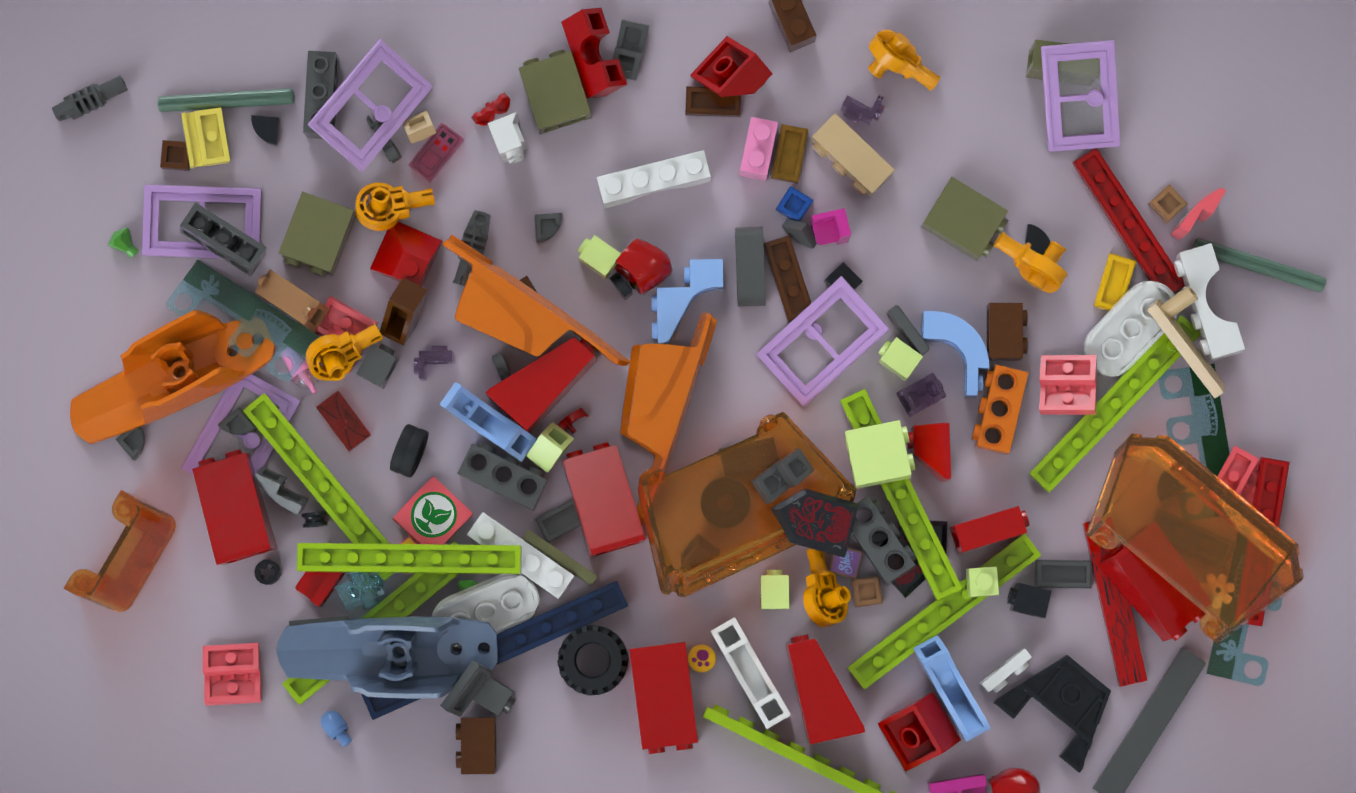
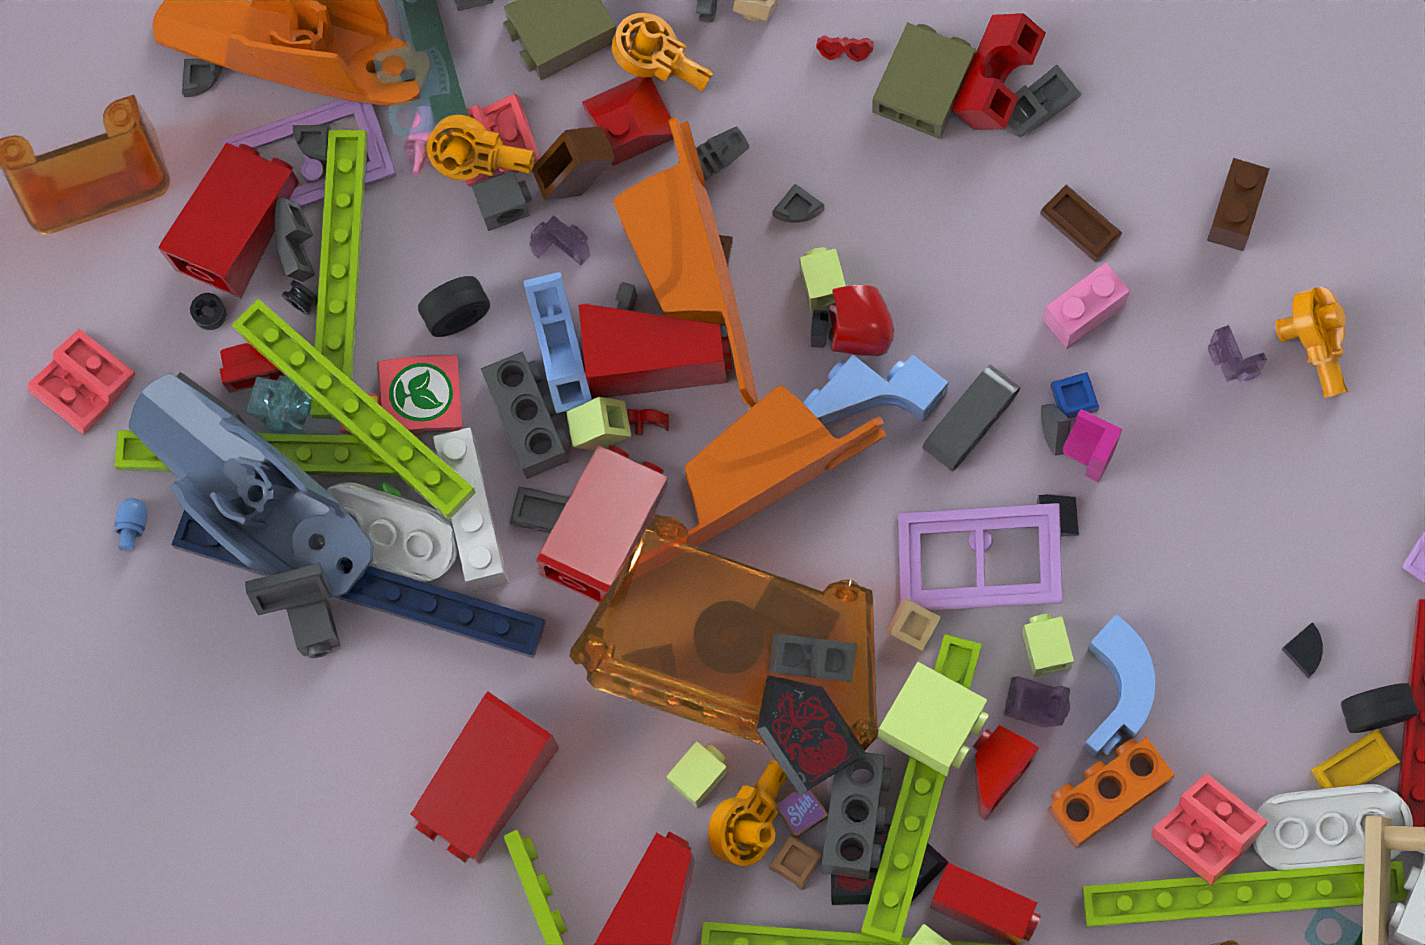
camera: 50 degrees right, 10 degrees down
(291, 300) = (474, 63): medium nougat brick -> none
(343, 421) = (419, 228): clear red tile -> none
(436, 152) = (751, 43): clear pink tile -> none
(477, 745) = (250, 663): reddish brown piece -> none
(508, 138) = (834, 81): white window -> none
(560, 558) = (507, 546): olive tile -> none
(575, 678) = (424, 654): black tyre -> none
(653, 177) = (977, 257): white arch -> none
(701, 658) = (559, 778): yellow tile -> none
(732, 70) = (1129, 206): red slope -> none
(750, 673) = (596, 835): white arch -> none
(787, 276) = (1003, 460): reddish brown tile -> none
(789, 153) = (1115, 340): pearl gold tile -> none
(818, 409) = (913, 624): none -> tan plate
(851, 156) = (1179, 394): tan brick -> none
(908, 330) = (1082, 623): dark grey tile -> none
(965, 219) = (1246, 559): olive brick -> none
(1005, 331) = (1188, 713): reddish brown piece -> none
(1036, 269) = (1279, 673): light orange pin -> none
(1103, 242) = (1379, 708): none -> black tyre

